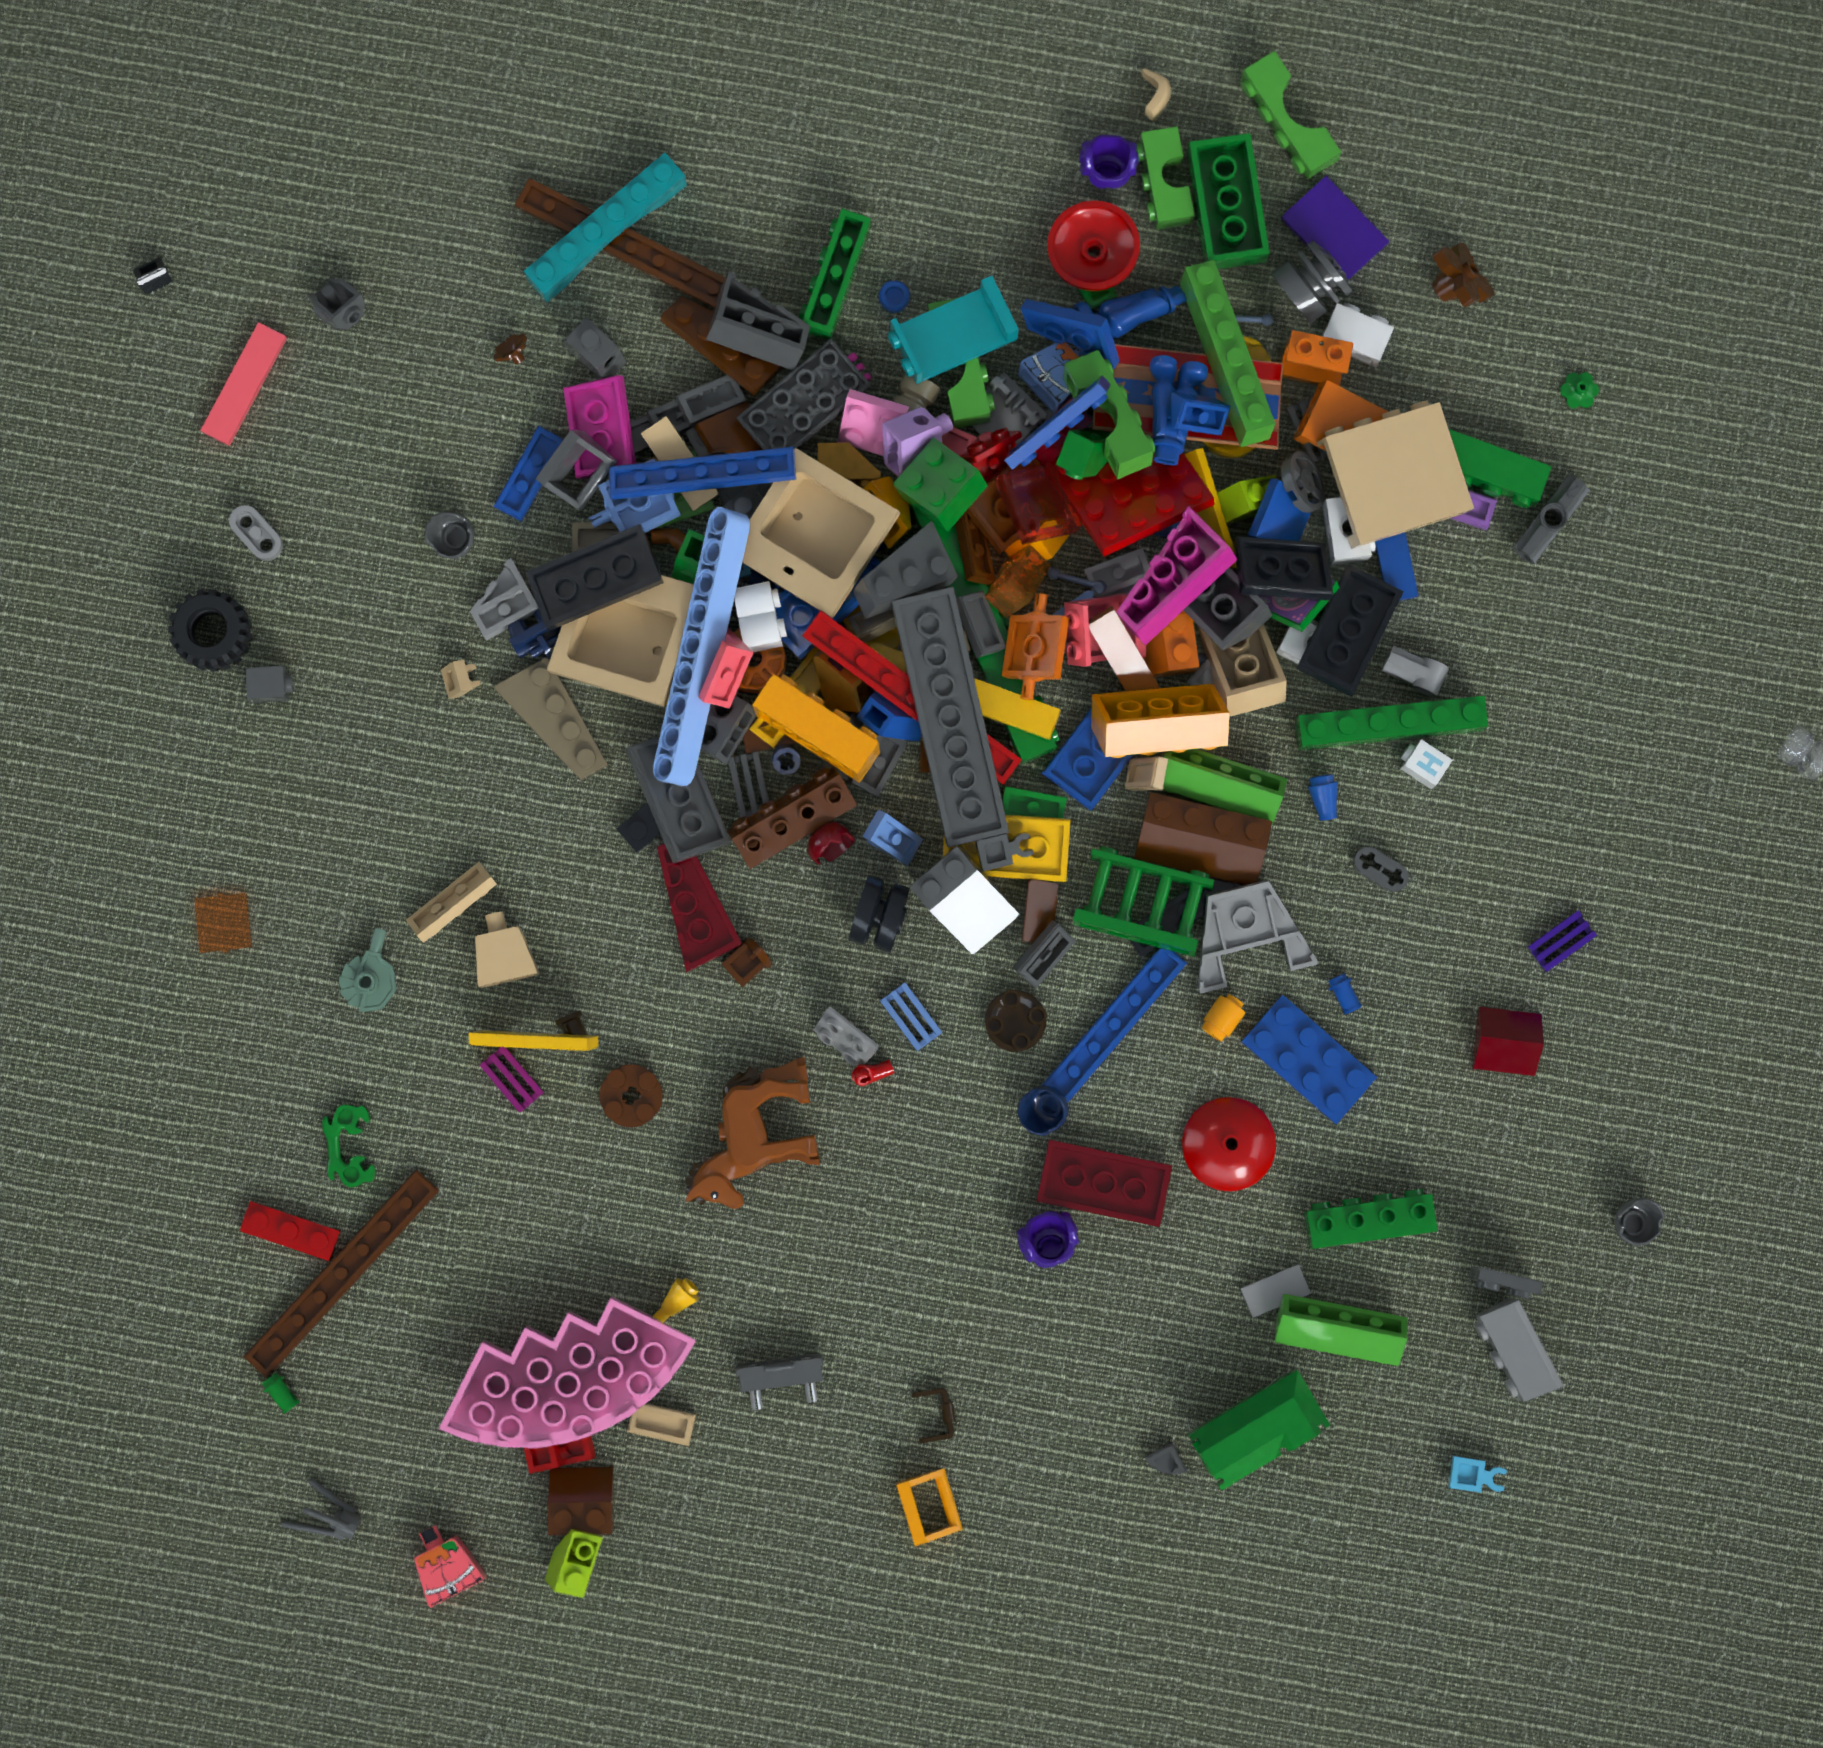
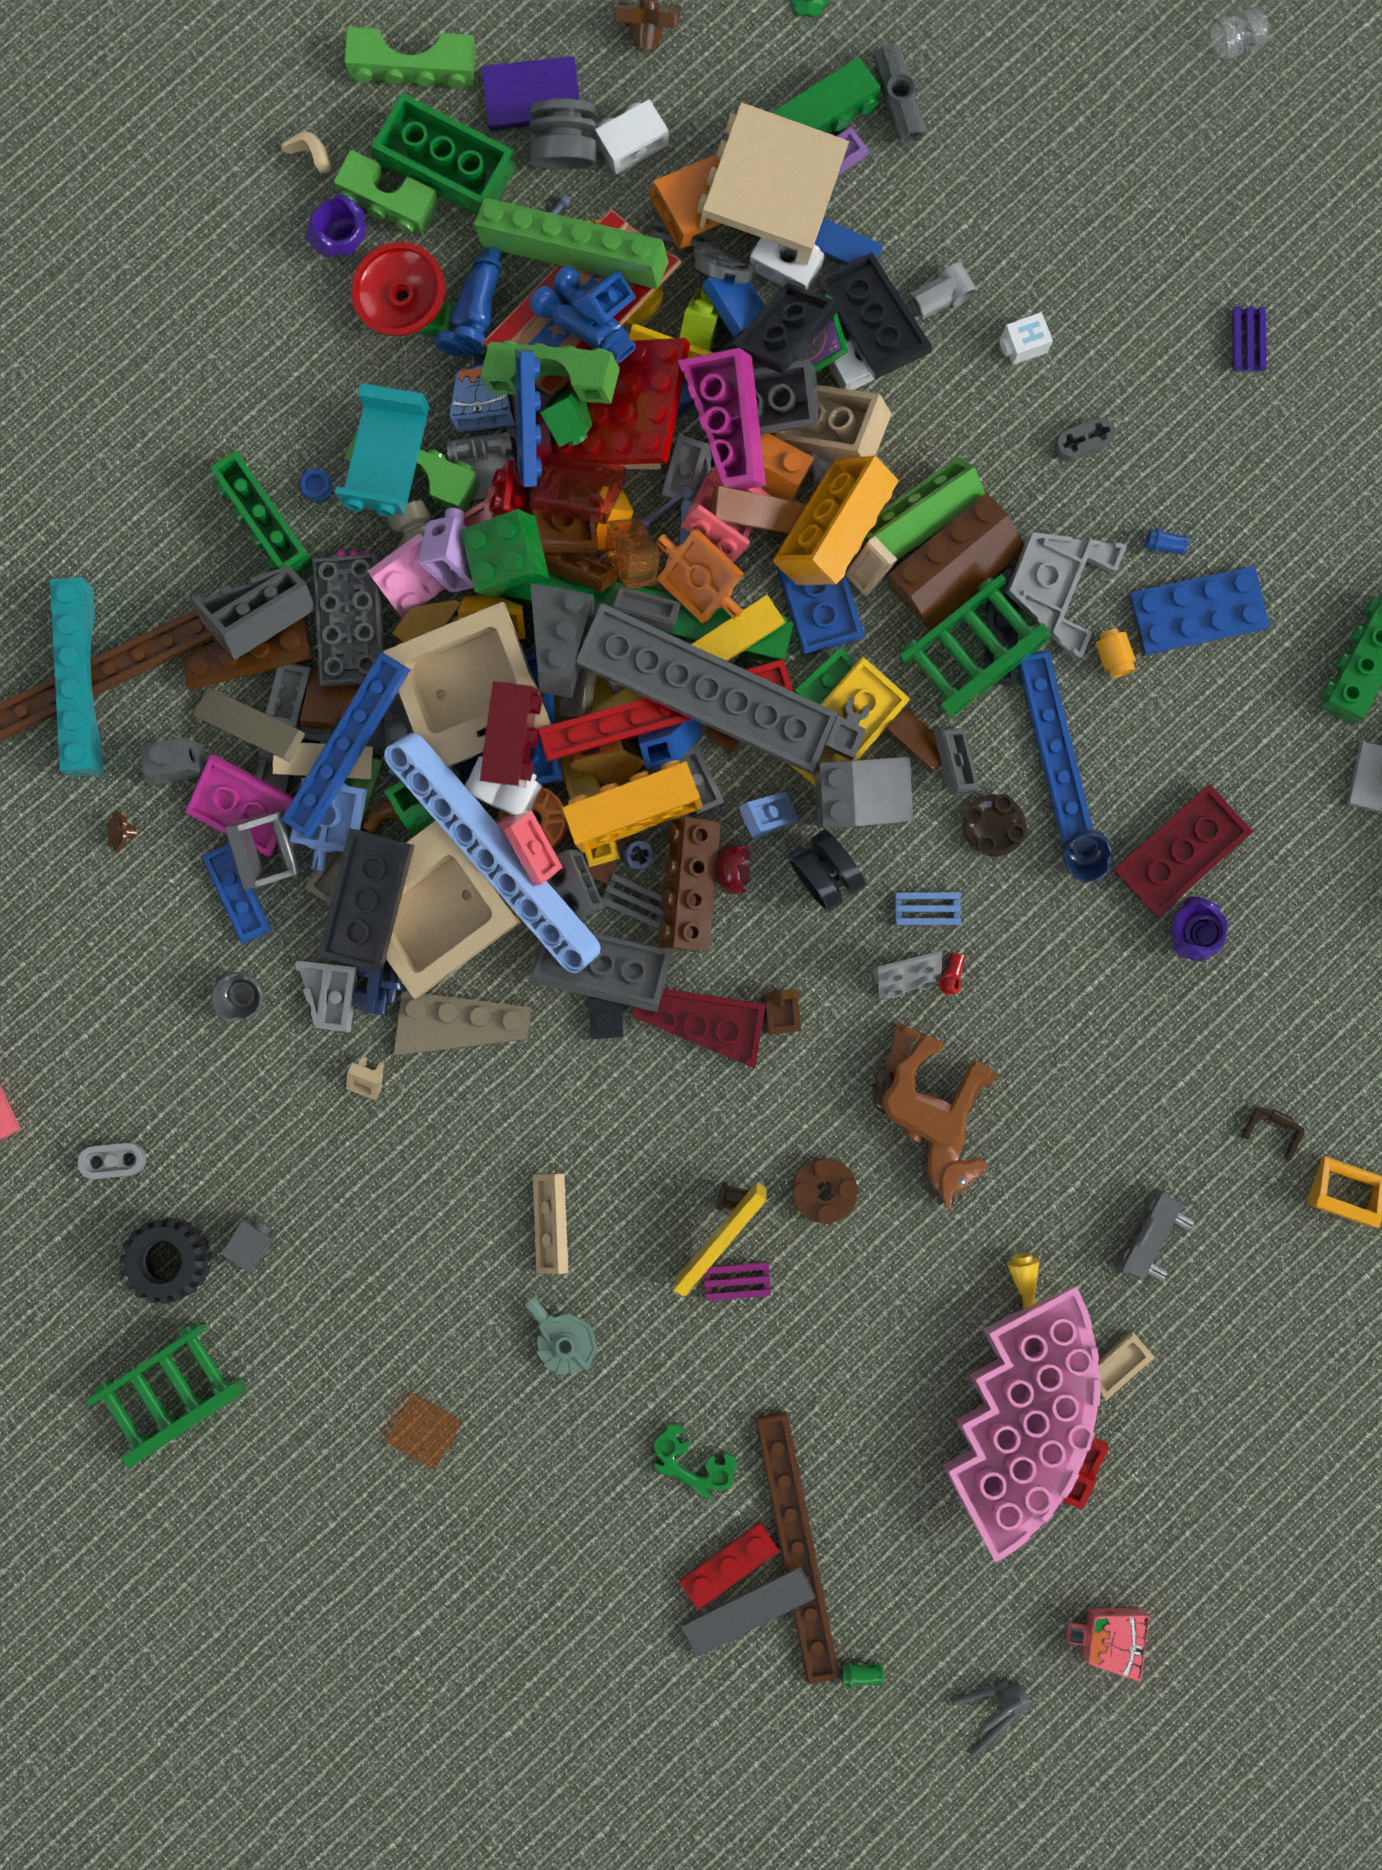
camera: 50 degrees left, 0 degrees up
(86, 725) = (195, 1408): none -> green fence
(266, 1269) = (748, 1611): none -> dark grey tile
(502, 953) = (626, 1211): tan torso -> none
(573, 1563) = (1190, 1530): lime slope -> none
(581, 1500) = (1139, 1483): reddish brown slope -> none
(665, 387) = (249, 724): none -> dark tan tile
(799, 593) = (510, 734): none -> dark red brick
(1078, 328) = (454, 350): blue wing -> none
(1206, 1149) = (1206, 740): red dish -> none
(1315, 363) = (627, 181): orange panel -> none
(1324, 796) = (990, 438): blue cone -> none
(1391, 723) = (972, 341): green brick -> none
(1508, 1041) = (1300, 440): dark red slope -> none

